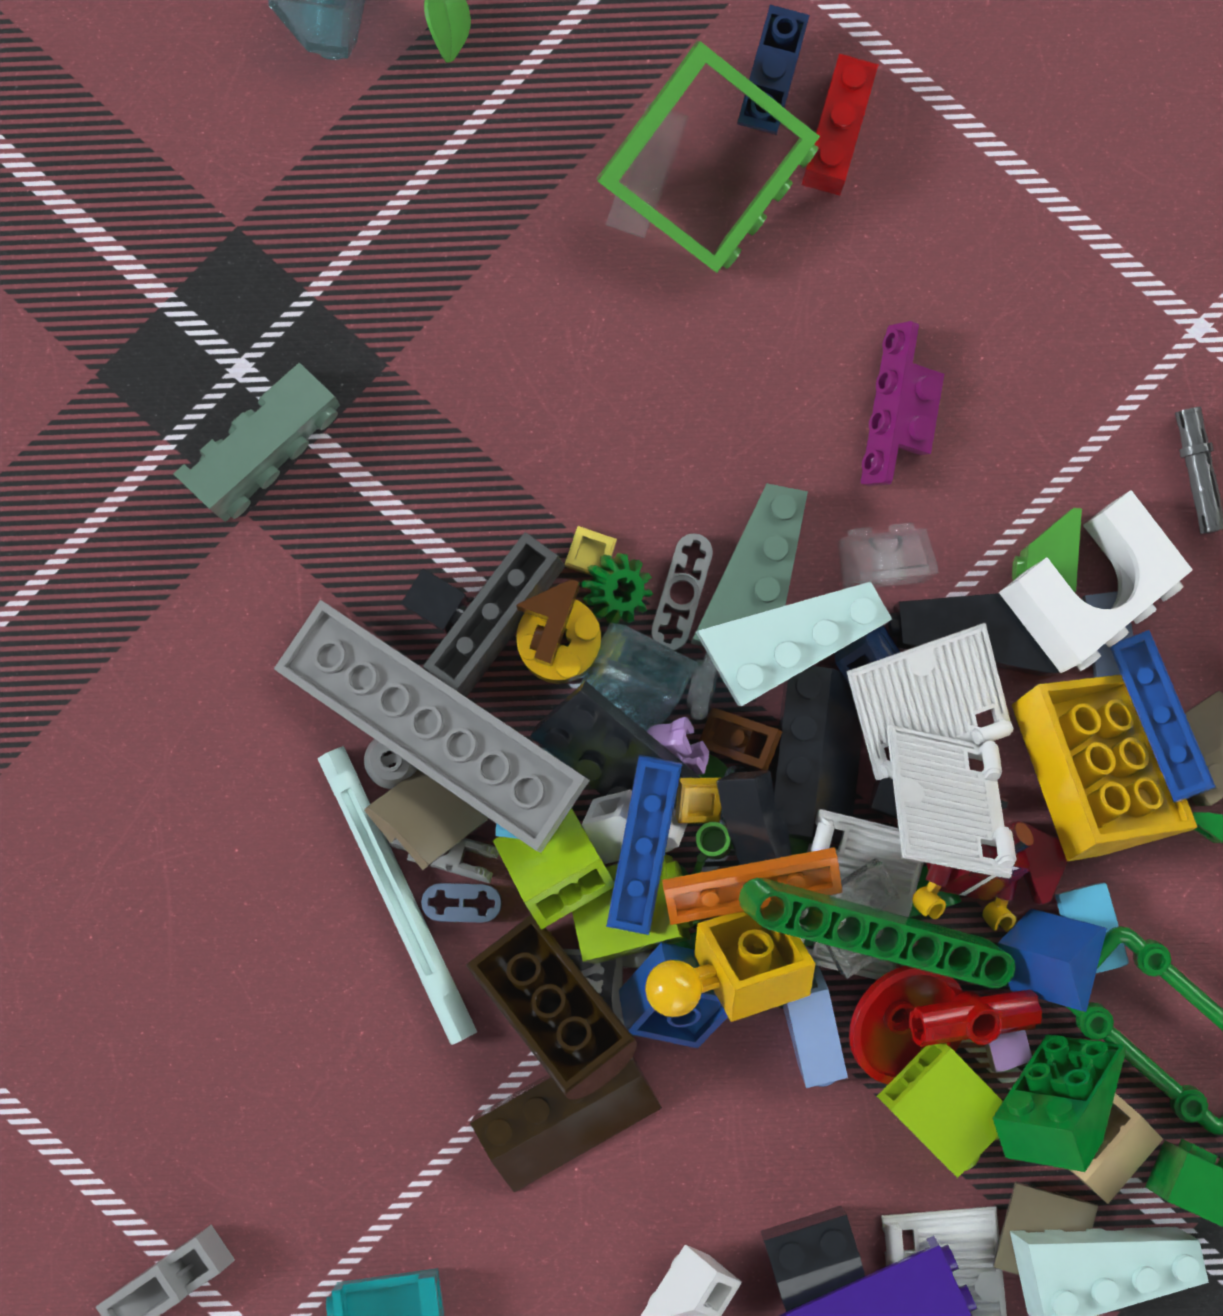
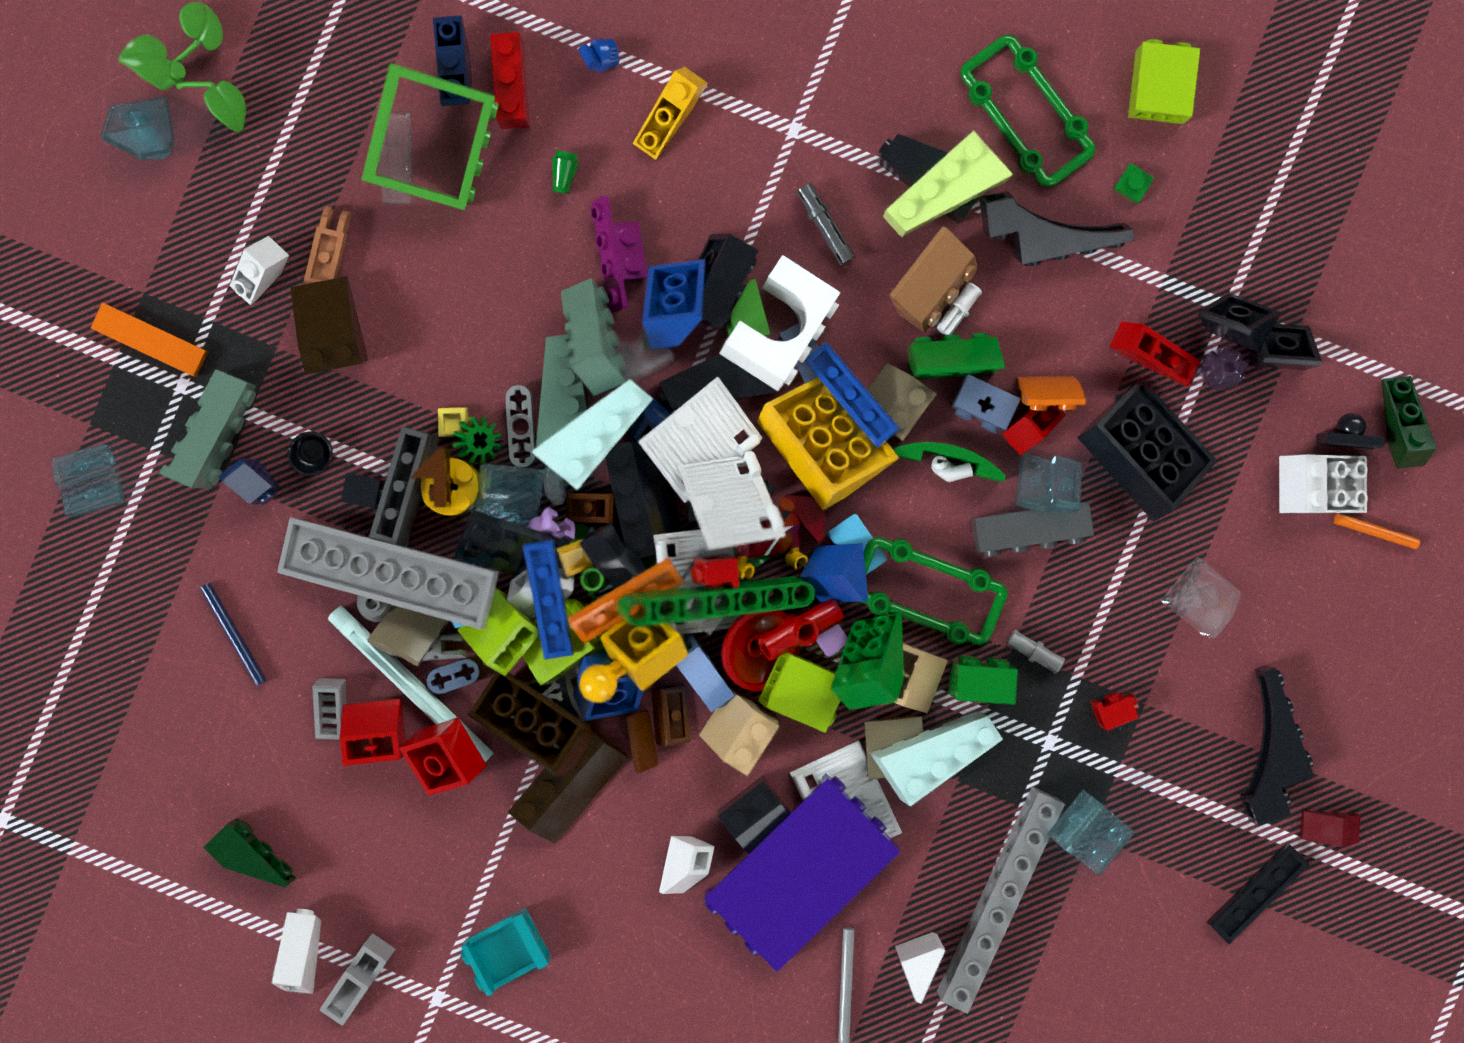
camera: 20 degrees left, 5 degrees up
(64, 449) = (88, 480): none -> clear light blue slope
(75, 1041) = (242, 852): none -> dark green slope
(99, 1213) = (298, 952): none -> white slope
(179, 732) = (233, 634): none -> dark blue bar
(221, 291) = (149, 339): none -> orange tile
(283, 851) = (338, 694): none -> light grey slope
(287, 531) = (250, 481): none -> dark blue slope
(321, 939) = (372, 732): none -> red slope
(382, 522) = (310, 453): none -> black hair
(406, 251) = (258, 269): none -> white slope
(409, 1011) = (443, 756): none -> red brick
(471, 359) = (327, 325): none -> dark brown slope
(507, 260) = (327, 247): none -> nougat hinge
(690, 1092) = (641, 741): none -> reddish brown slope
(742, 1071) = (670, 715): none -> reddish brown slope
(833, 506) = (592, 337): none -> sand green wedge
(838, 1132) = (740, 732): none -> tan slope
(868, 269) = (563, 171): none -> green cone
(893, 892) = (716, 571): none -> red brick
(964, 500) = (673, 302): none -> blue slope
(974, 134) = (600, 54): none -> blue piece
(1027, 491) = (726, 268): none -> black slope
(1040, 244) = (670, 111): none -> yellow slope

